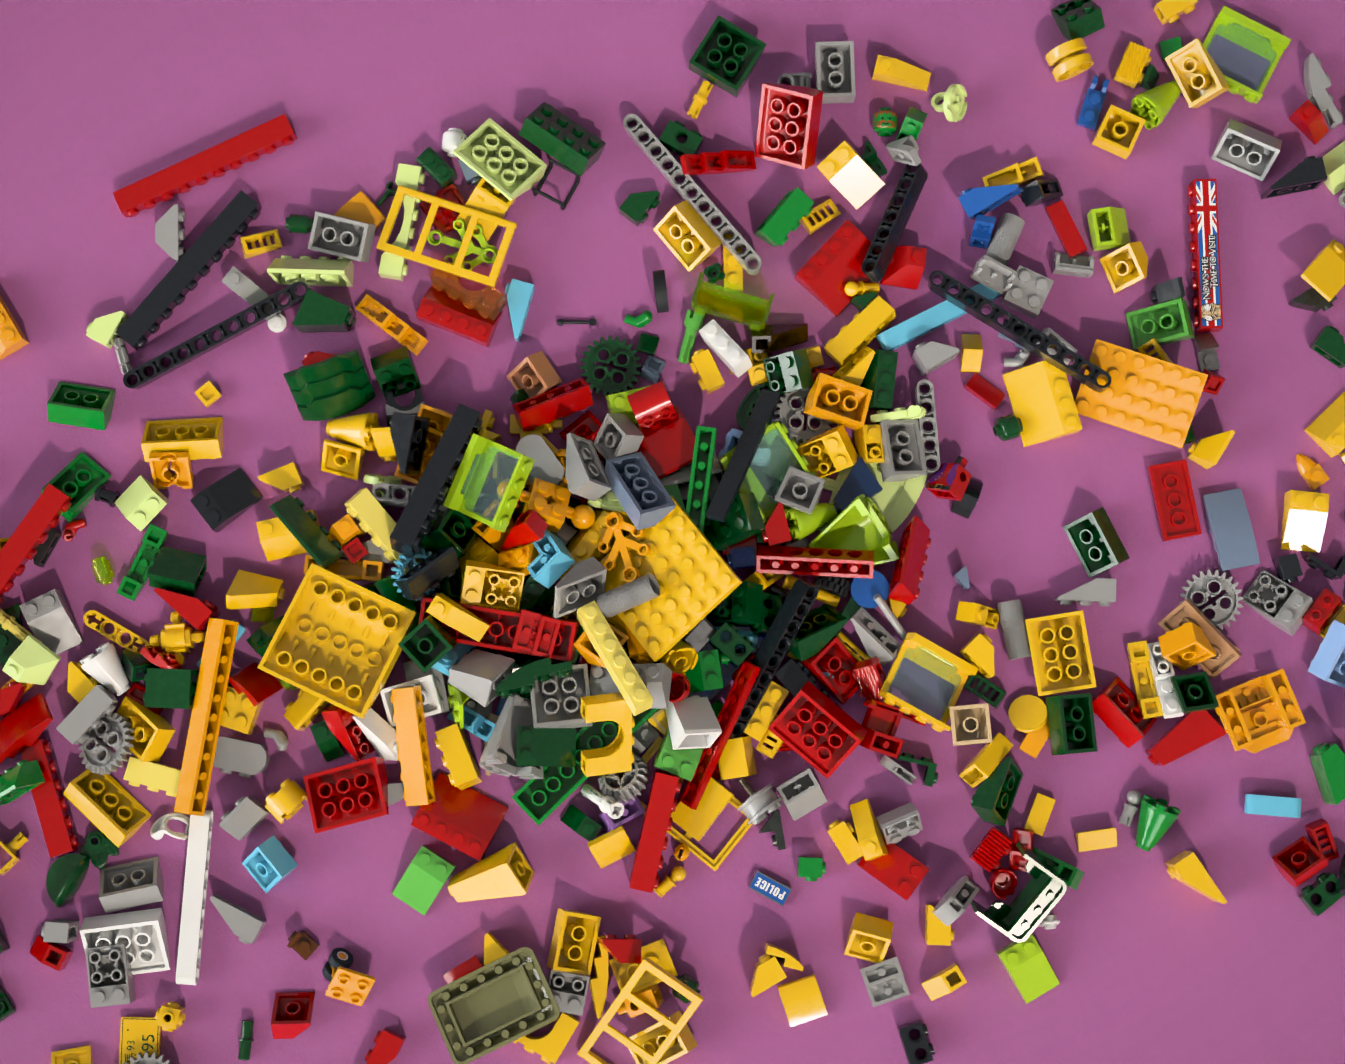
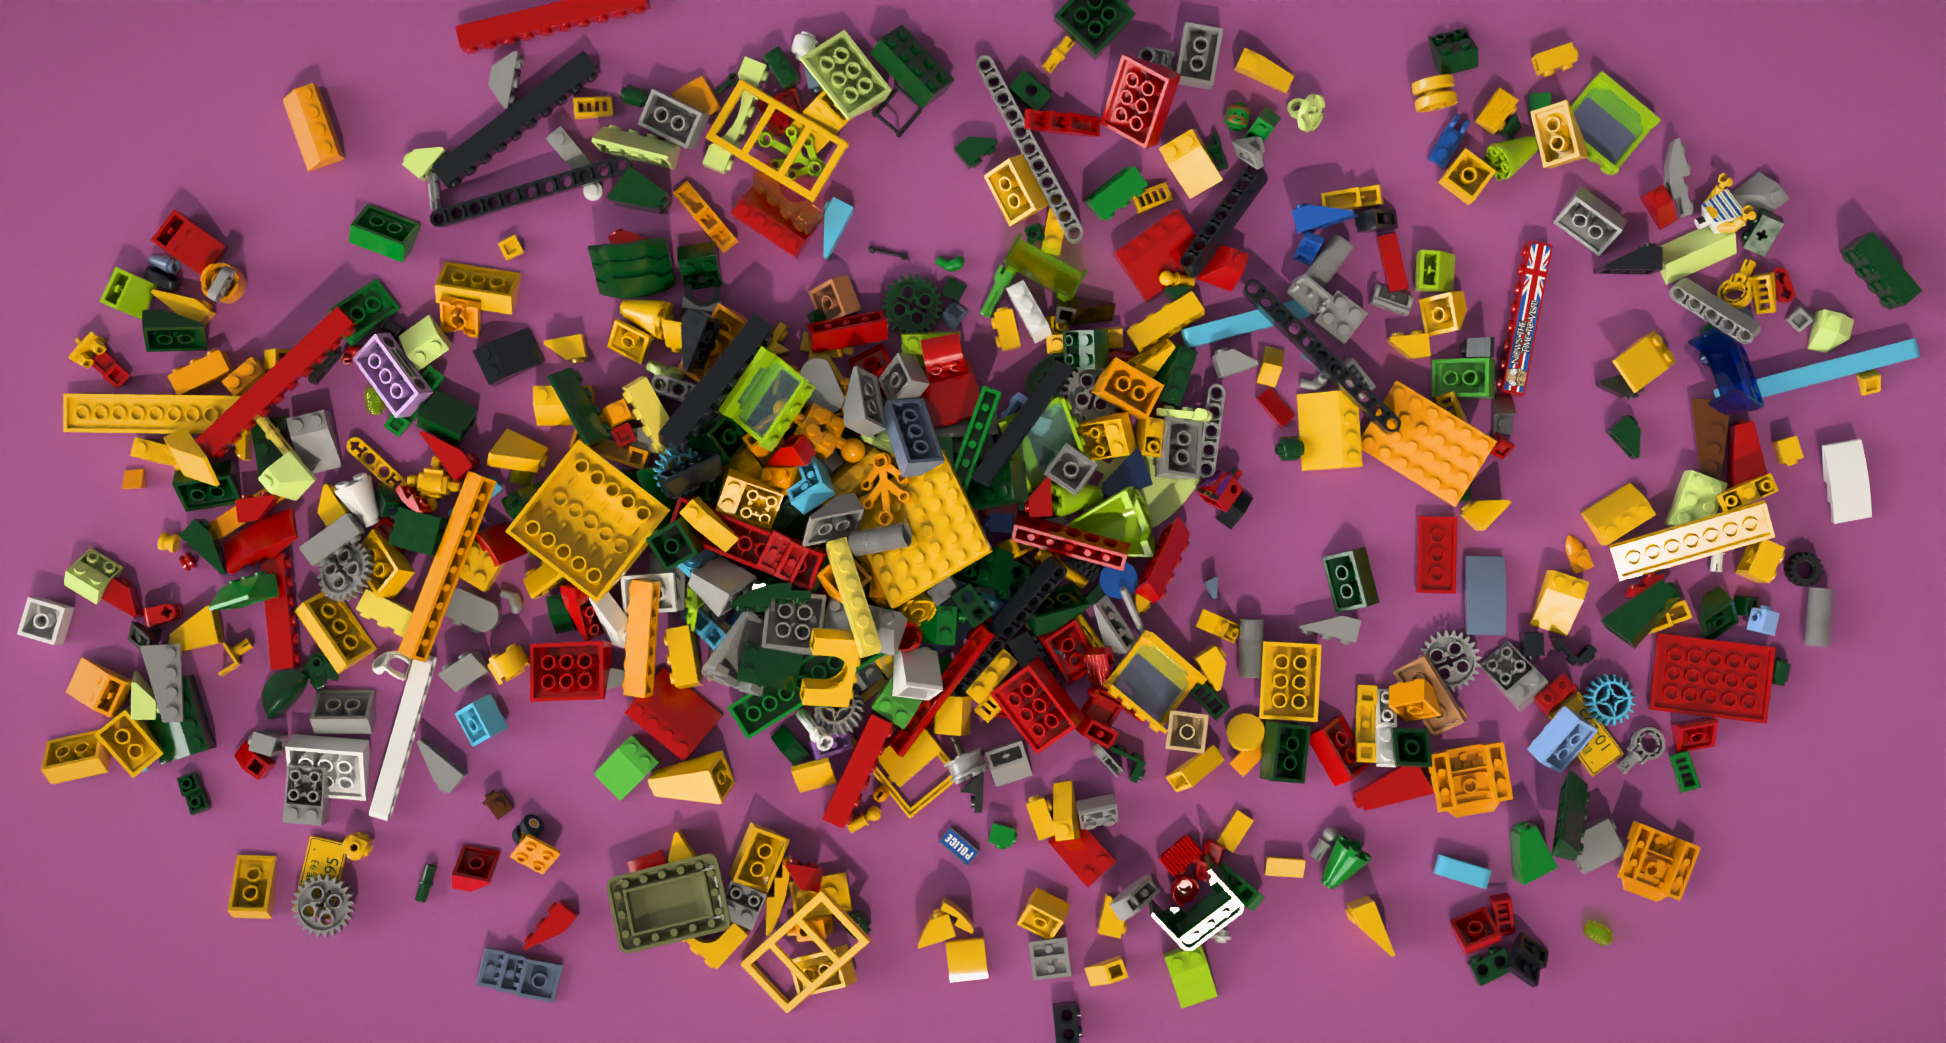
camera: 10 degrees right, 5 degrees up
(116, 540) = (392, 375): none -> lavender brick
(660, 291) = (977, 241): black tyre -> none
(997, 793) = (1198, 803): dark green slope -> none
(1103, 304) = (1411, 346): none -> yellow slope

